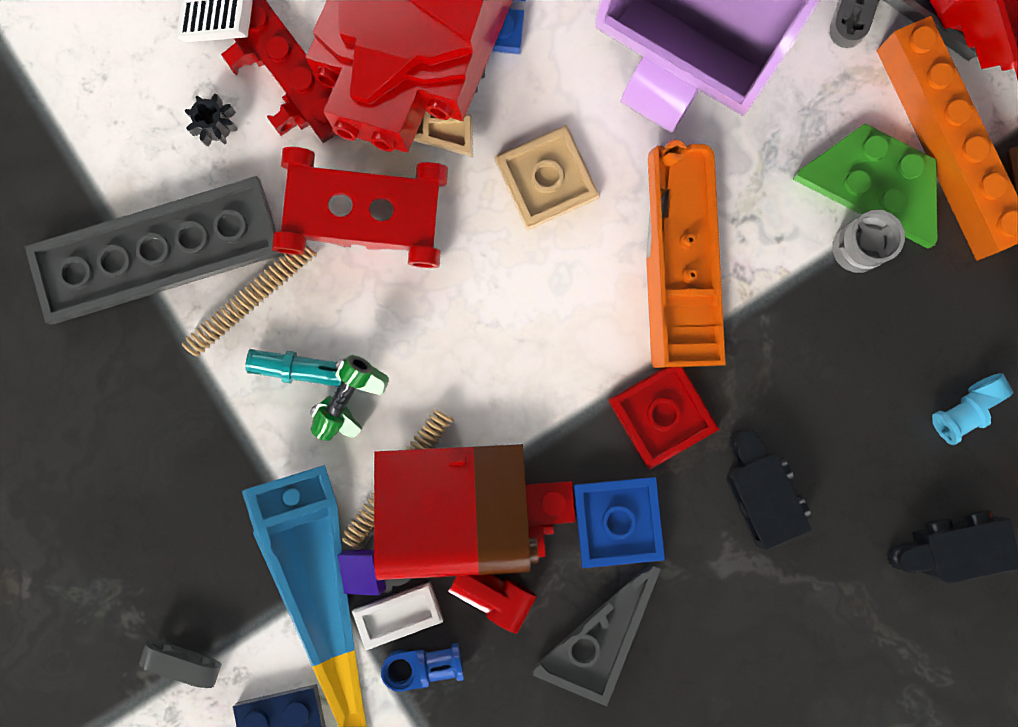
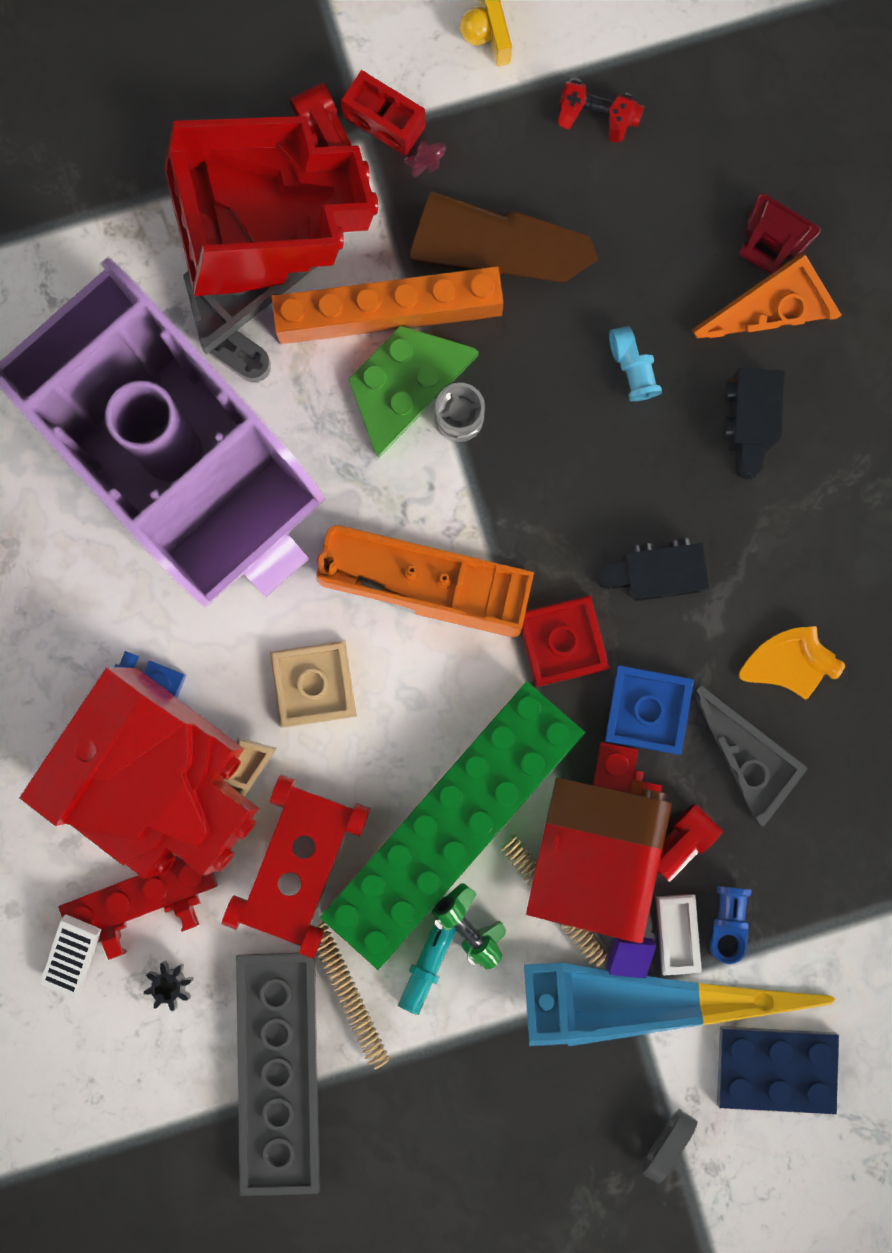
camera: 75 degrees left, 0 degrees up
(445, 351) = (452, 825): none -> green brick
(713, 660) = (792, 661): none -> light orange arm

